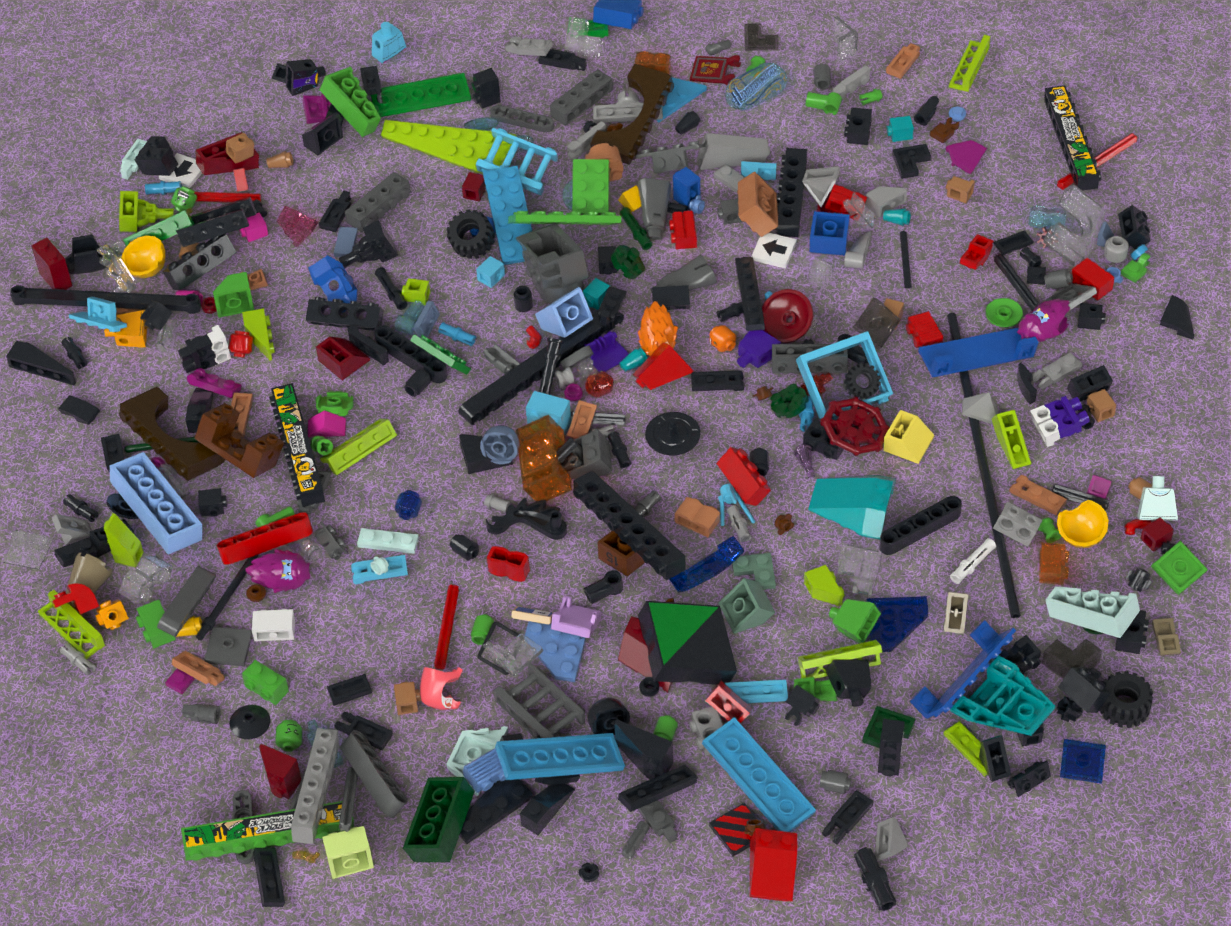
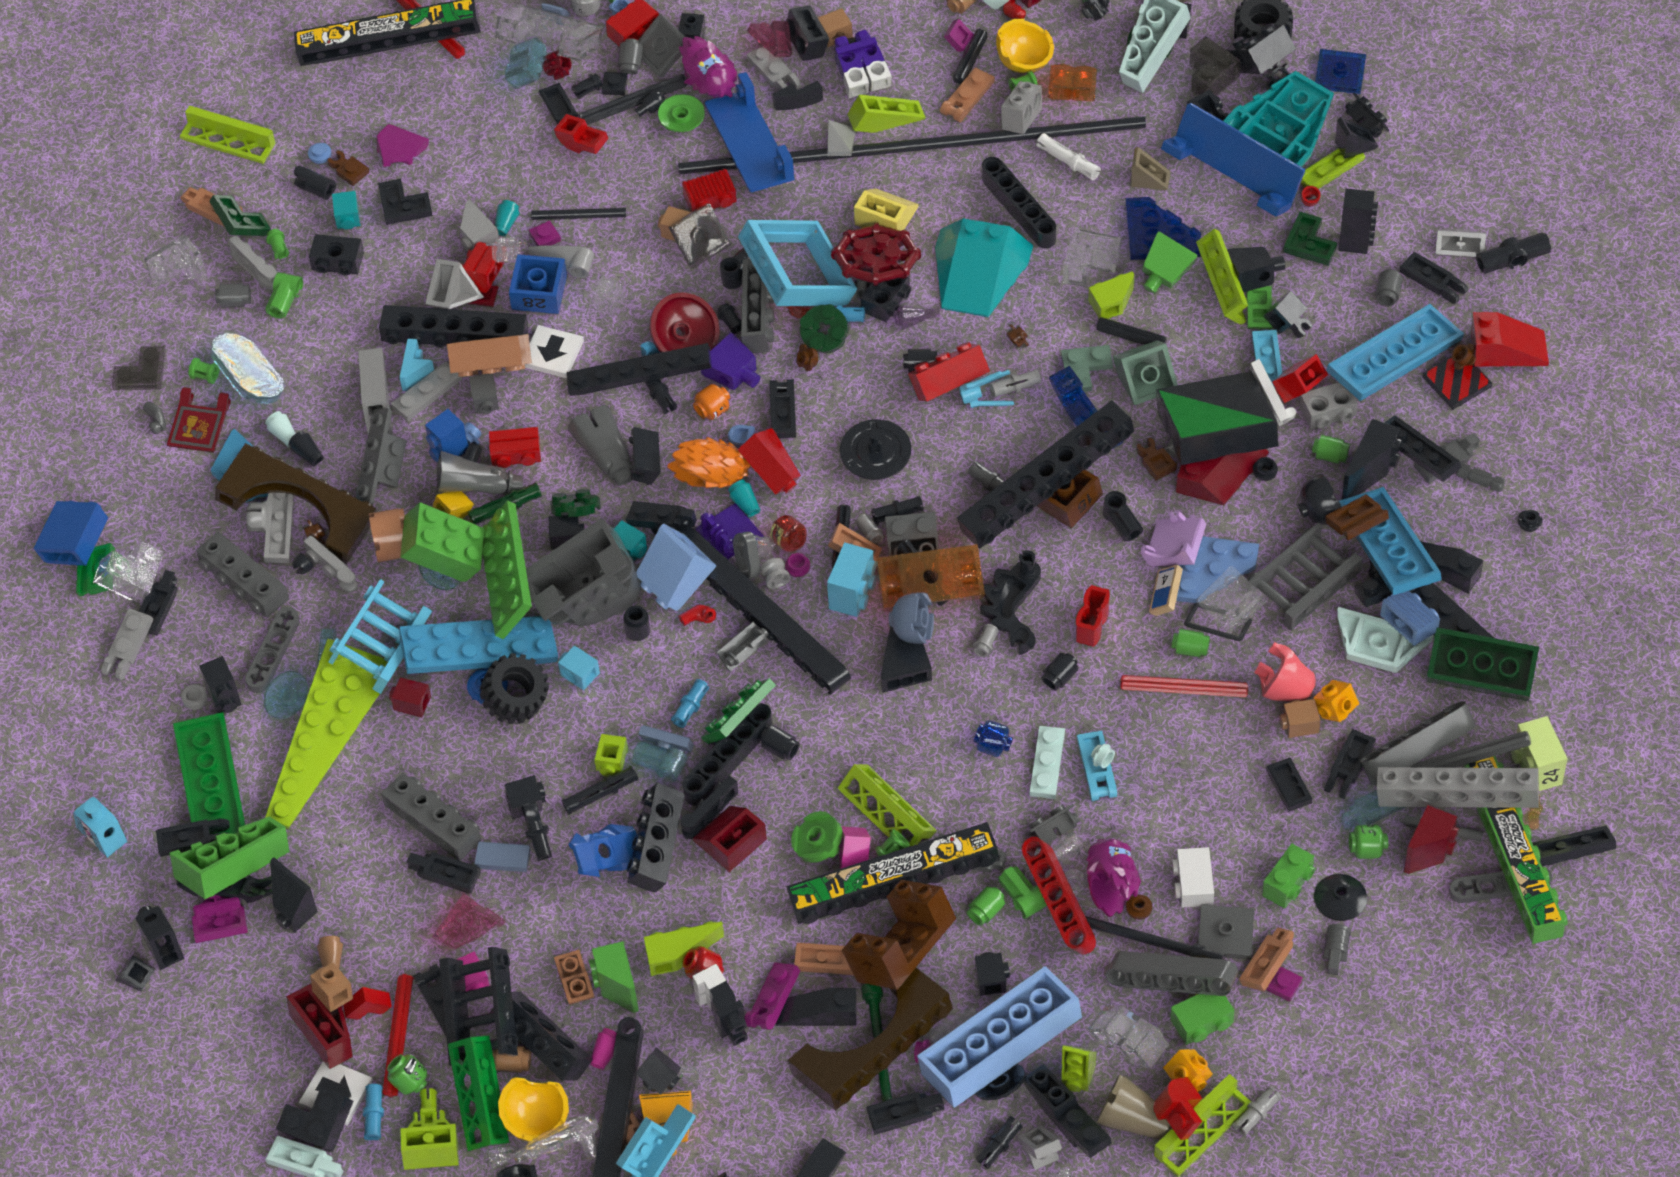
camera: 90 degrees left, 5 degrees up
(208, 305) = (617, 1013): dark red plate -> none
(267, 500) = (986, 905): none -> bright green brick
(416, 719) = (1336, 701): none -> light orange brick
(552, 357) = (755, 576): black pin -> none
(582, 733) = (1357, 517): none -> reddish brown plate
(658, 61) = (188, 488): clear orange brick -> none
(693, 358) = (740, 434): none -> medium blue tile
(697, 516) = (1007, 423): nougat brick -> none
(706, 108) = (280, 427): none -> light aqua cone
(728, 675) = (1281, 414): none -> white hinge
(789, 601) = (1128, 332): none -> black axle
(865, 370) = (812, 239): black tyre -> none
(883, 67) = (235, 220): none -> dark green plate
(883, 241) = (545, 234): none -> magenta plate
(935, 723) = (1308, 192): none -> red hinge
(960, 189) = (463, 150): medium nougat brick -> none
(1015, 294) = (650, 103): none -> black cylinder
(1085, 363) = (773, 37): none -> clear pink slope

